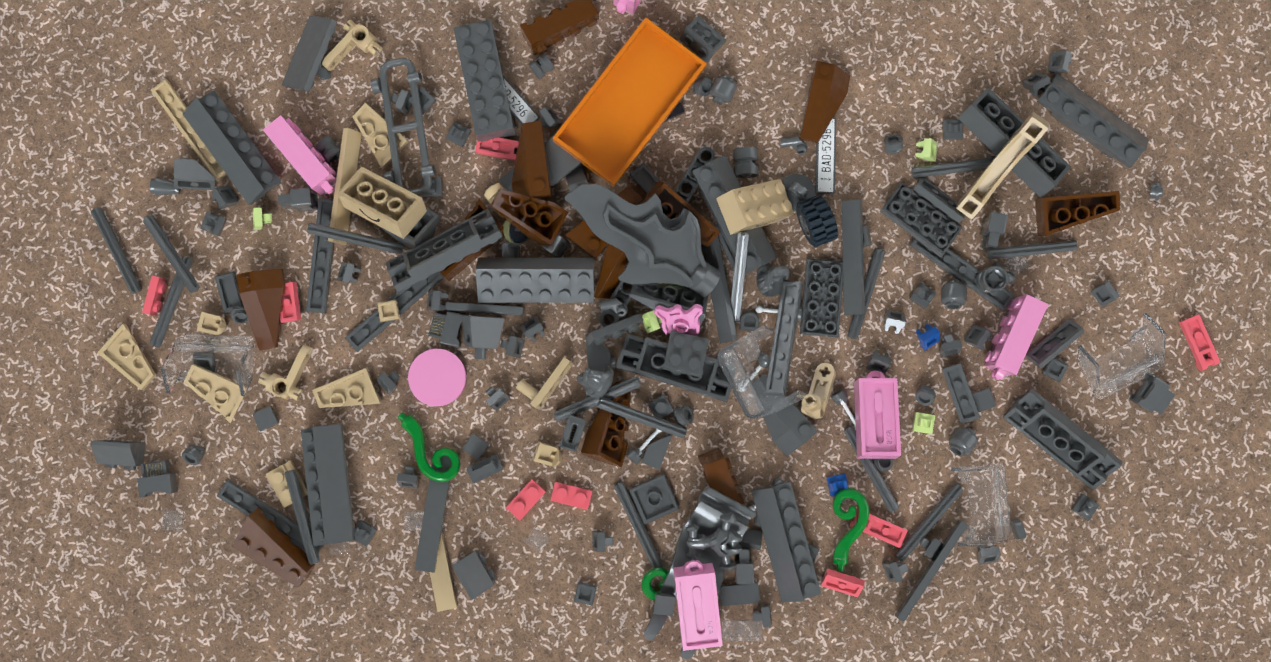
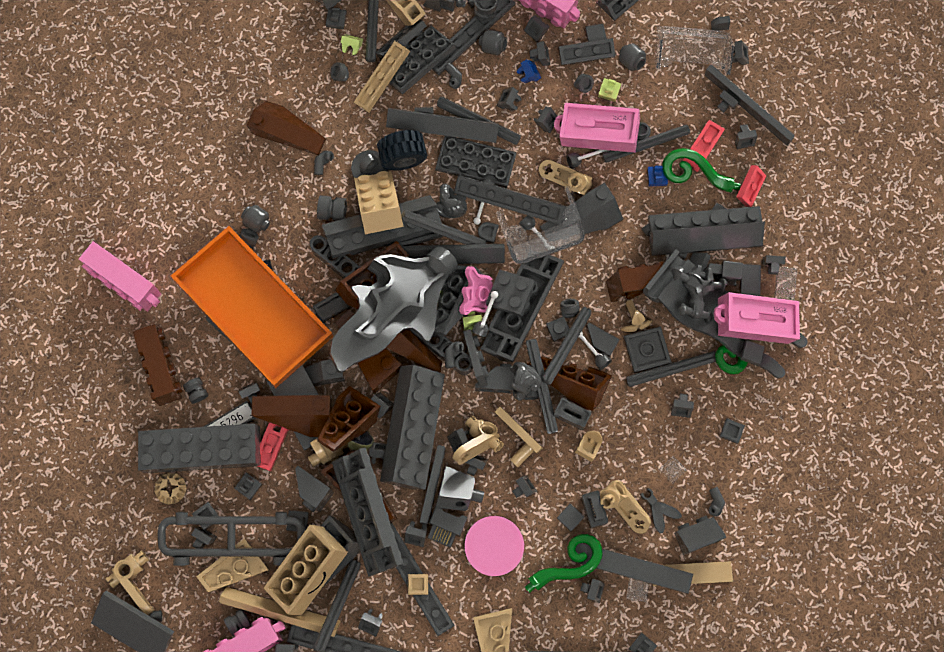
camera: 75 degrees left, 10 degrees down
(388, 382) = (492, 596): dark grey tile -> none
(453, 64) = (177, 493): none -> tan gear
(460, 194) = (312, 491): none -> dark grey slope
(497, 530) = (660, 509): none -> dark grey piece
(499, 488) = (618, 497): none -> tan piece
(512, 588) = (718, 502): none -> dark grey arm
(526, 499) = (631, 475): coral plate -> none
(533, 349) = (484, 436): none -> tan piece
(571, 495) = (633, 429): coral plate -> none
(645, 330) = (481, 328): none -> hinge
(681, 484) = (637, 319): none -> tan plant
(702, 39) = (200, 230): dark grey bracket -> none
(826, 161) = (345, 136): white tile -> none
(894, 187) = (382, 76): none -> tan tile
(910, 263) = (456, 76): none -> dark grey arm
(922, 295) = (489, 70): dark grey tile -> none
(929, 522) = (703, 99): dark grey axle -> none

